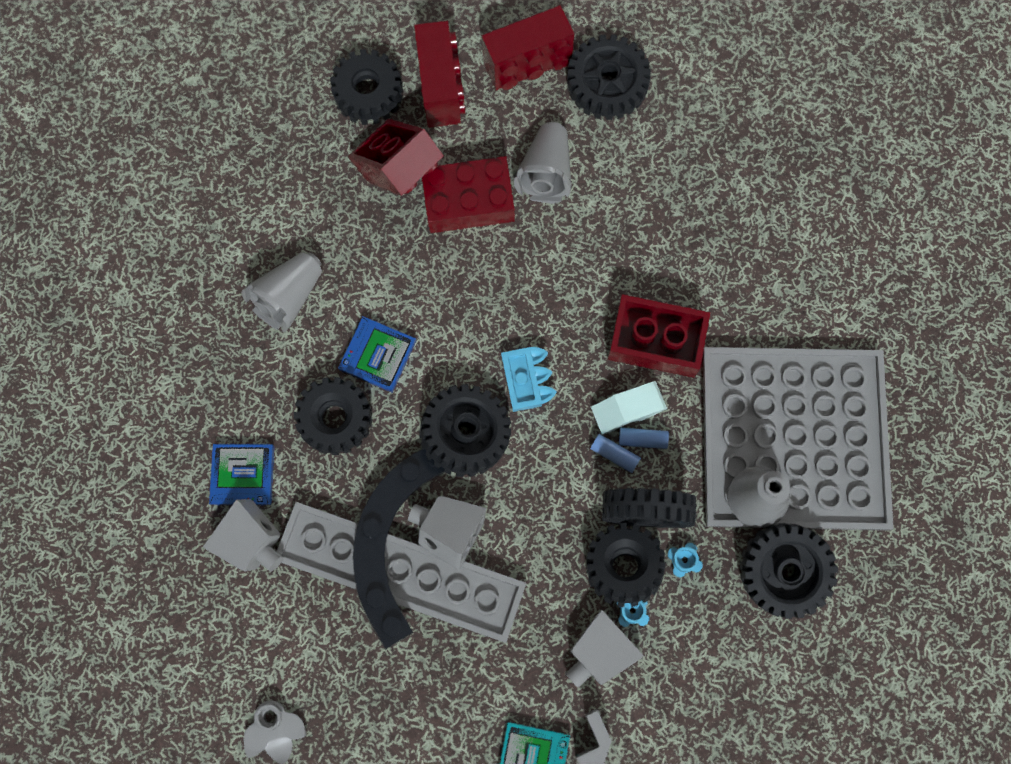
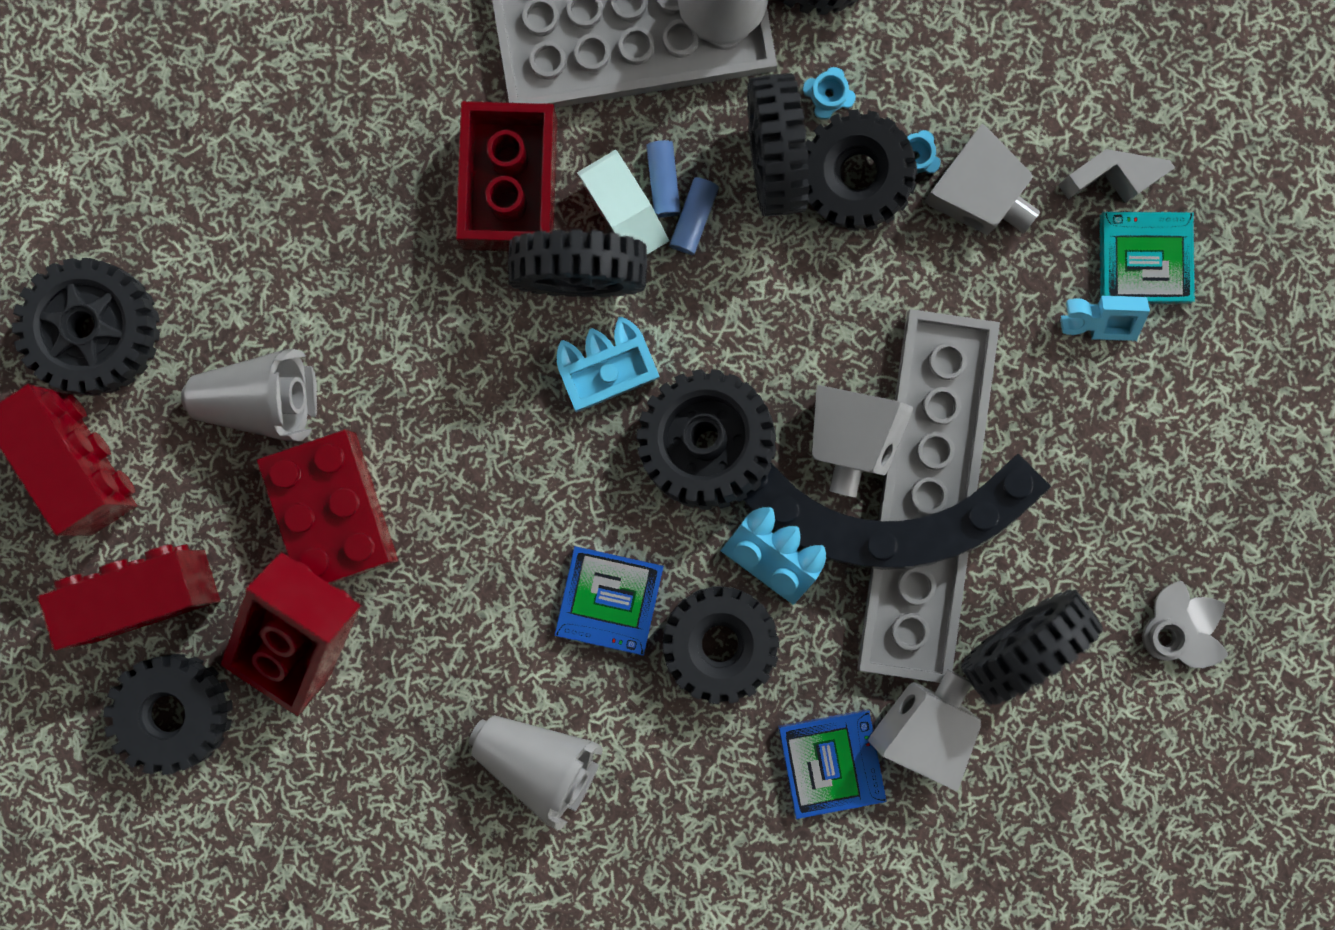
camera: 110 degrees left, 10 degrees up
(282, 612) = (1032, 647): none -> black wheel
(382, 461) = (774, 555): none -> medium azure plate
(495, 722) = (1109, 319): none -> medium azure plate
(591, 365) = (577, 263): none -> black wheel

